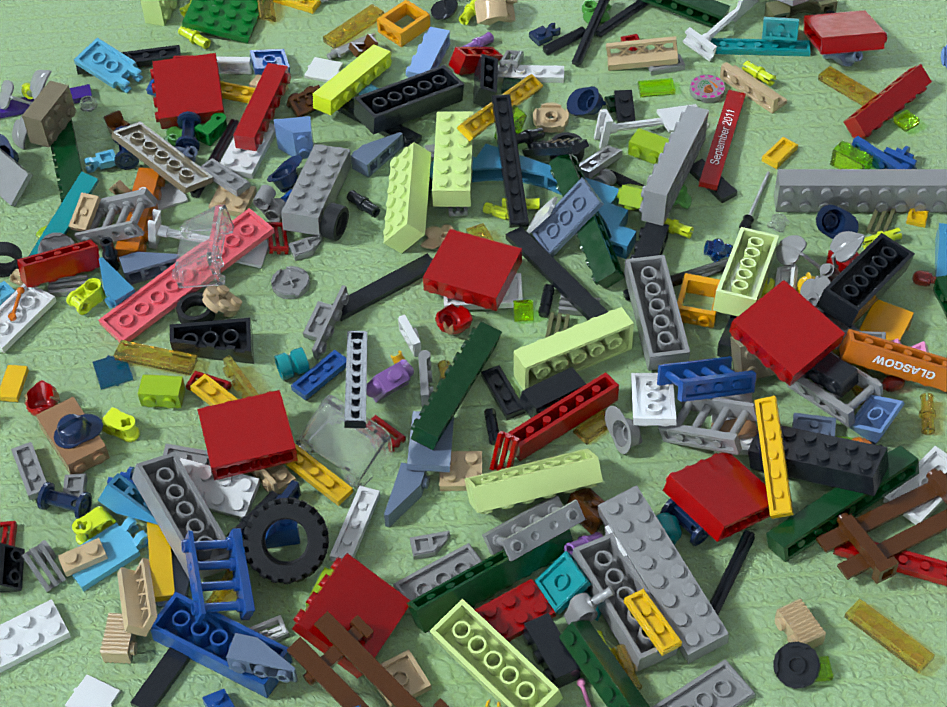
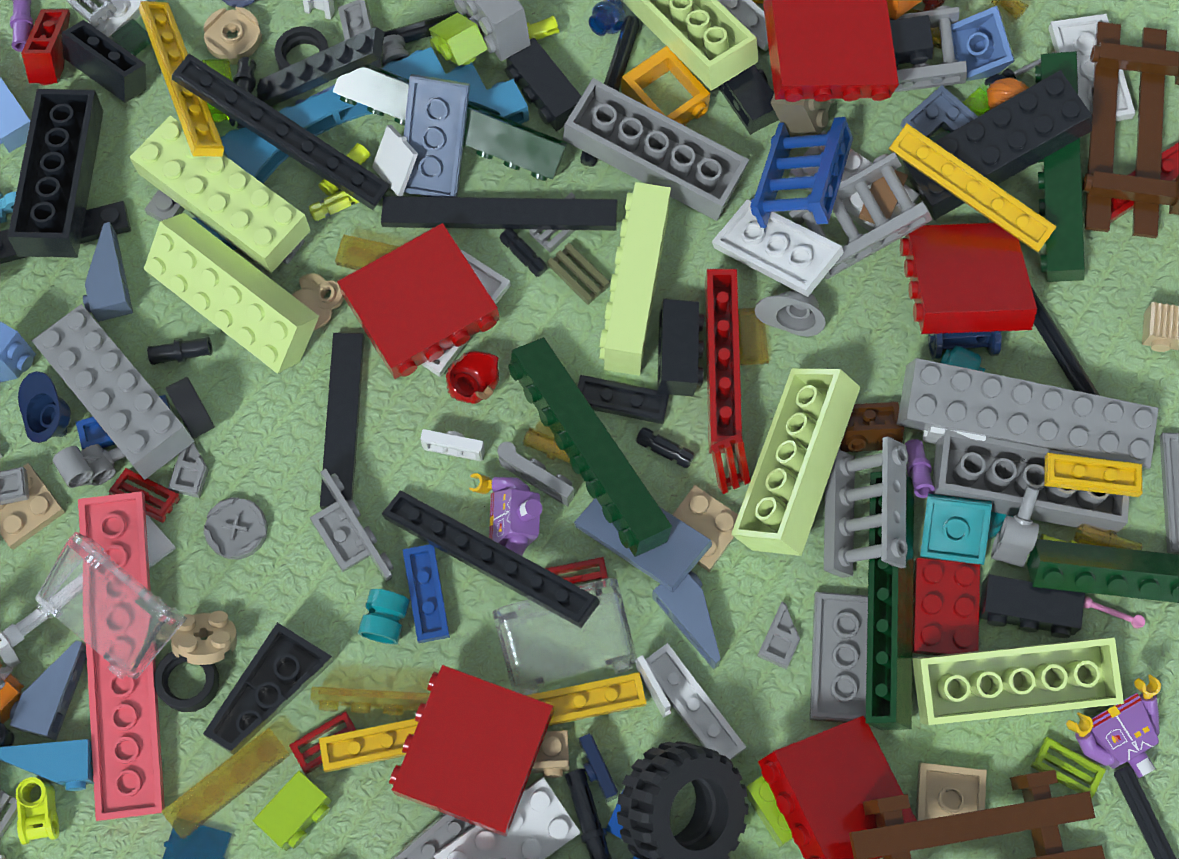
camera: 55 degrees left, 20 degrees up
(347, 496) = (653, 686): none -> white piece
(523, 310) = (522, 289): clear neon green plate -> none

